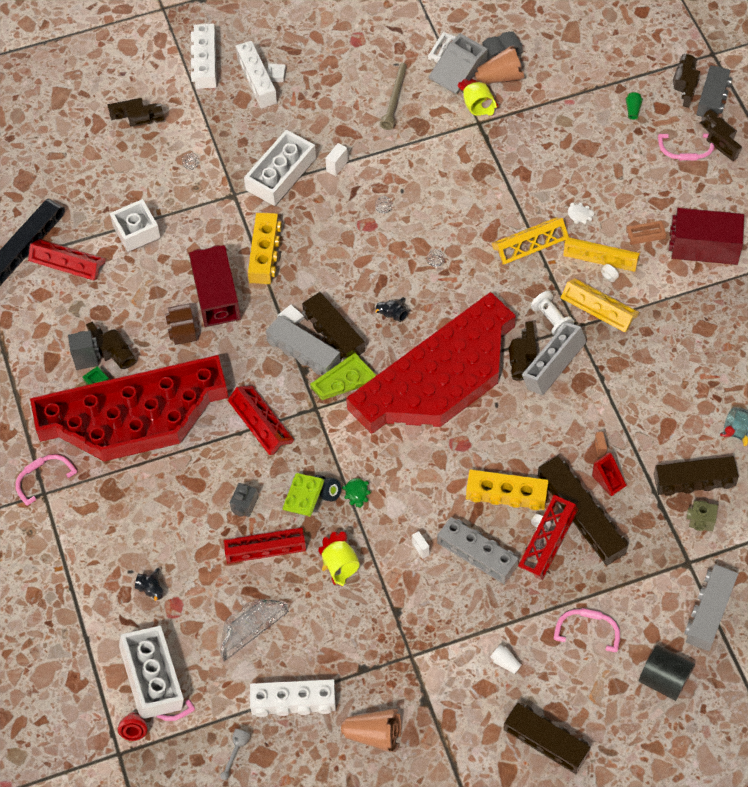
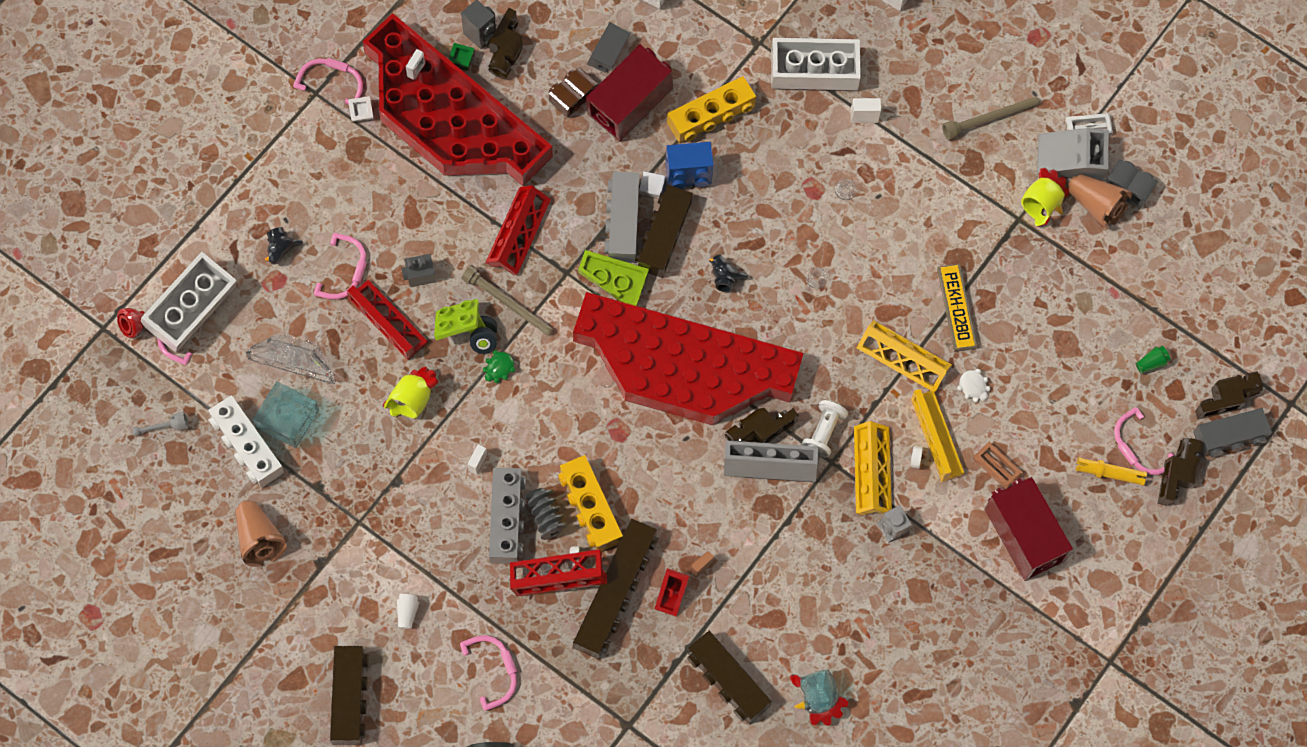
camera: 50 degrees right, 10 degrees up
(83, 468) = (360, 109): none -> white tile
(86, 403) = (415, 64): none -> white tile
(165, 283) = (608, 48): none -> dark grey hinge
(211, 542) = (358, 272): none -> bright pink piece
(274, 468) = (473, 276): none -> dark tan piece
(293, 654) = (286, 414): none -> clear light blue container
(297, 281) = (689, 164): none -> blue brick
(494, 520) = (545, 512): none -> dark grey piece
(517, 191) = (956, 308): none -> tile
(649, 312) = (894, 524): none -> light grey brick
(690, 176) = (1110, 471): none -> yellow pin
(702, 516) = (681, 716): olive brick -> none

